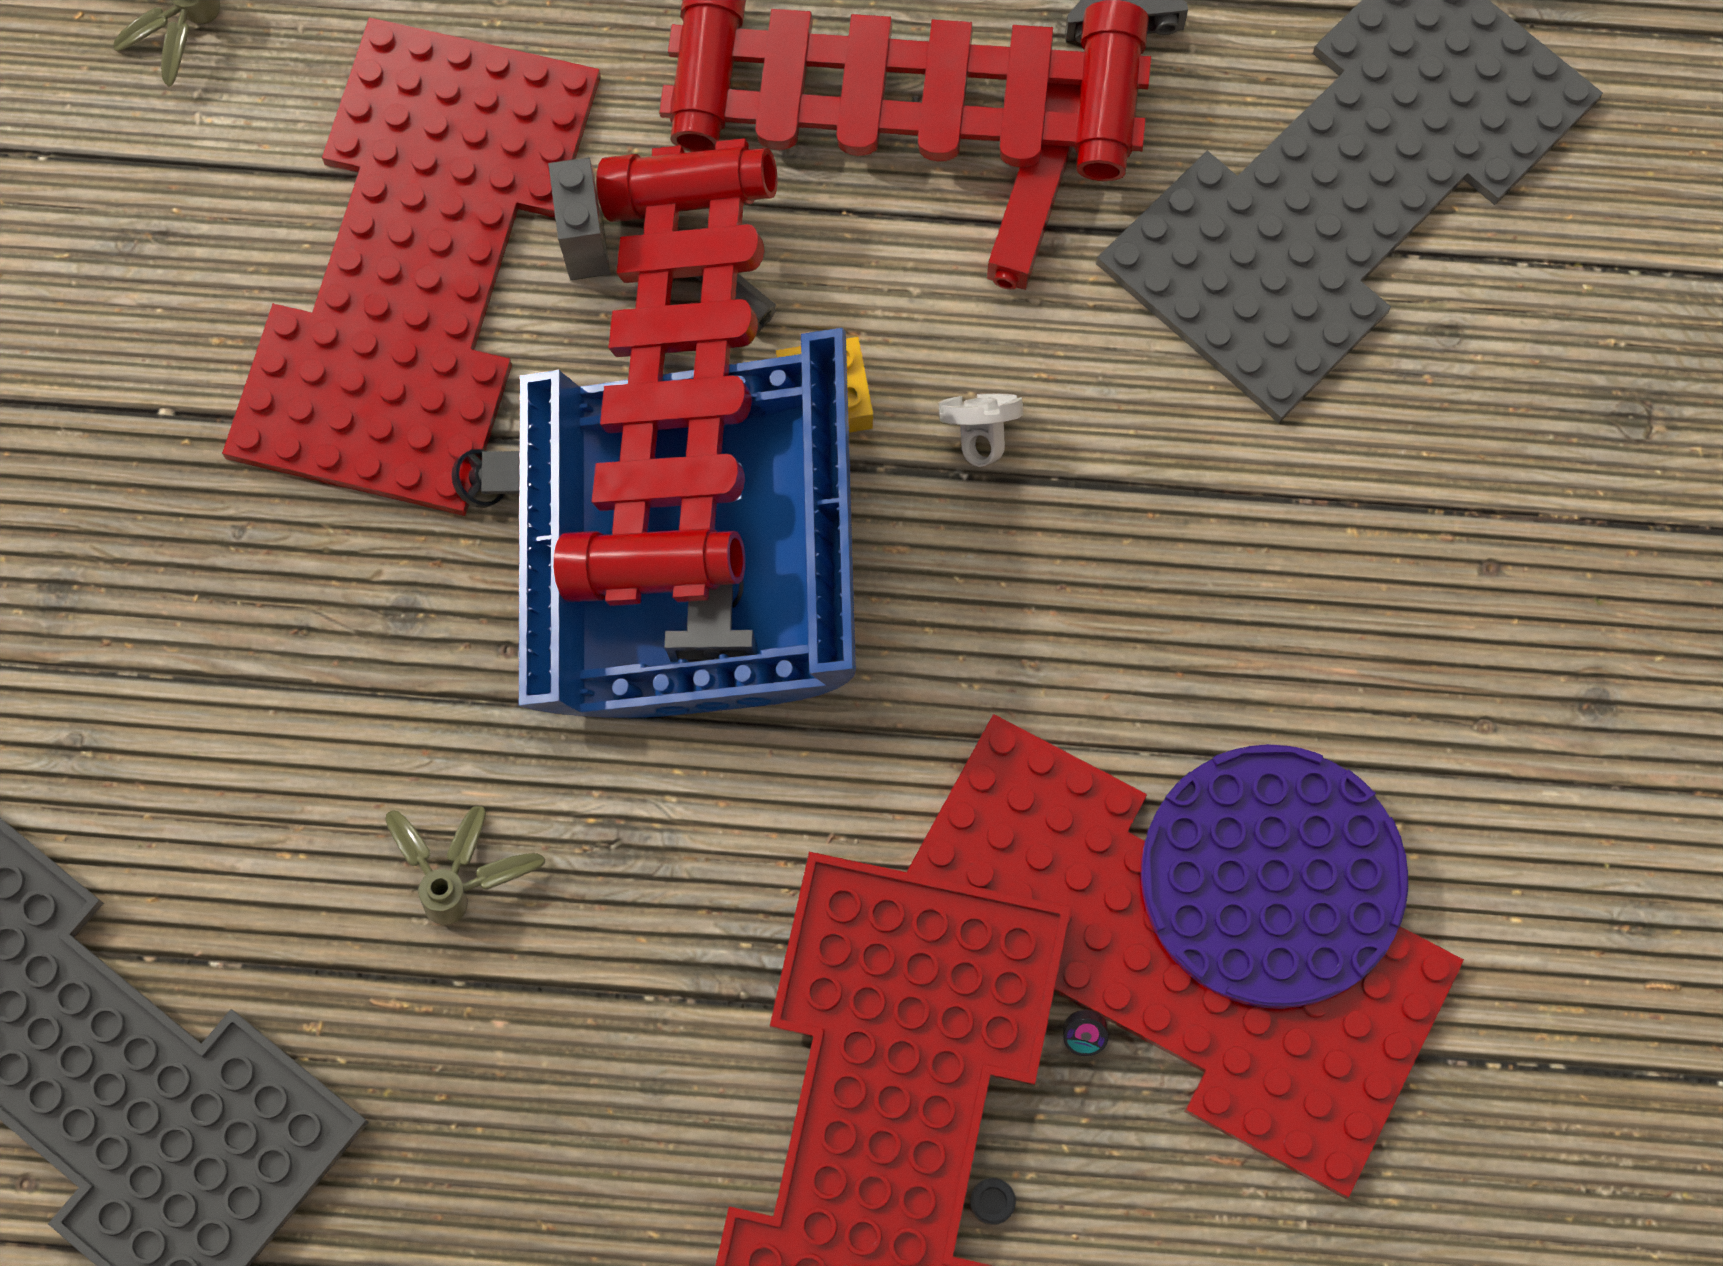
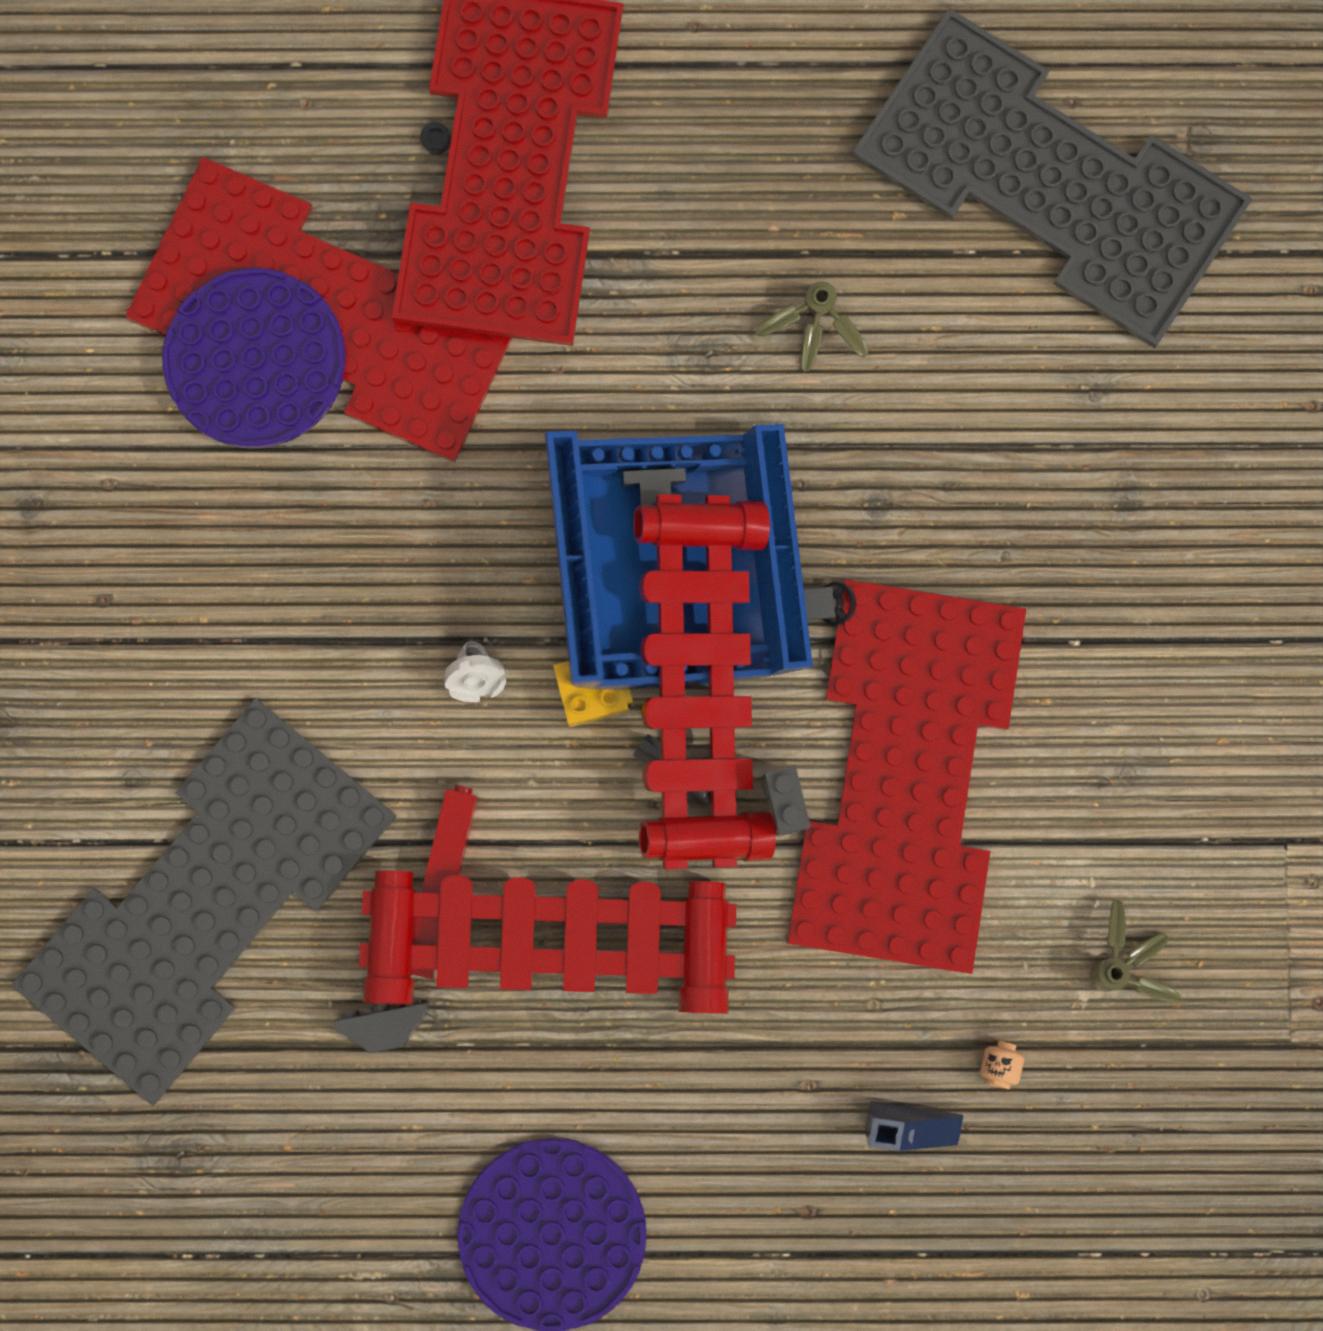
camera: 175 degrees right, 10 degrees up
(1085, 1033) = (379, 247): tile -> none

